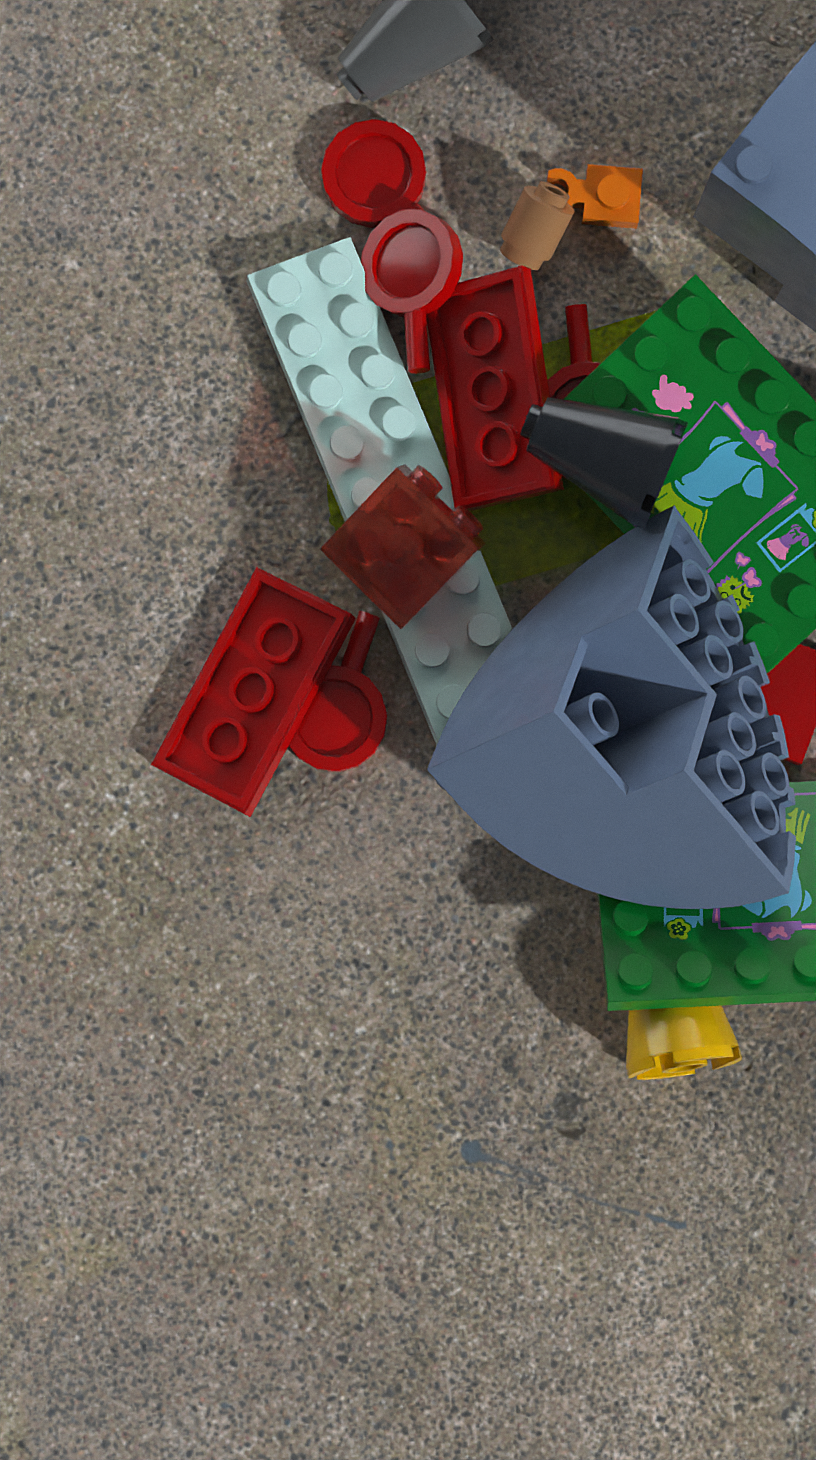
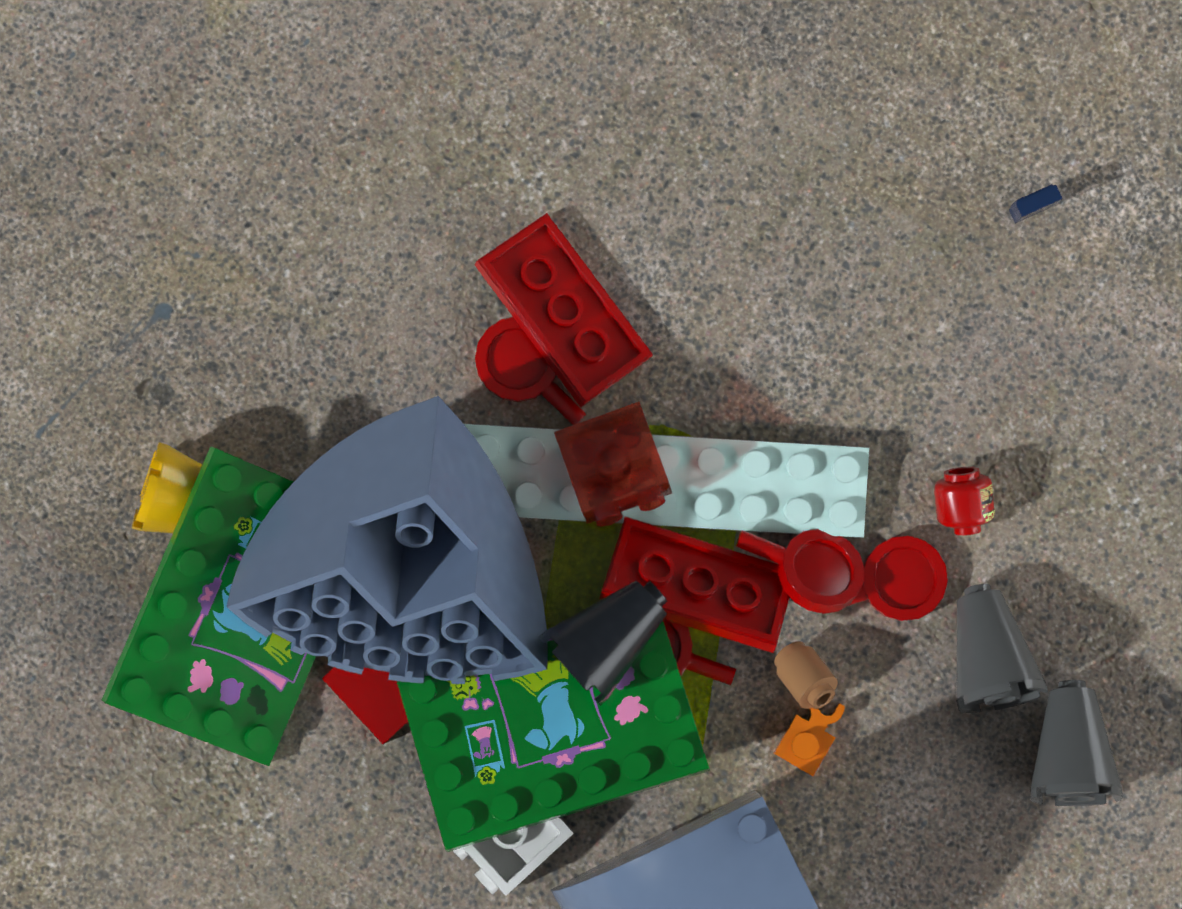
camera: 110 degrees right, 0 degrees up
(255, 144) = (964, 500): none -> red head

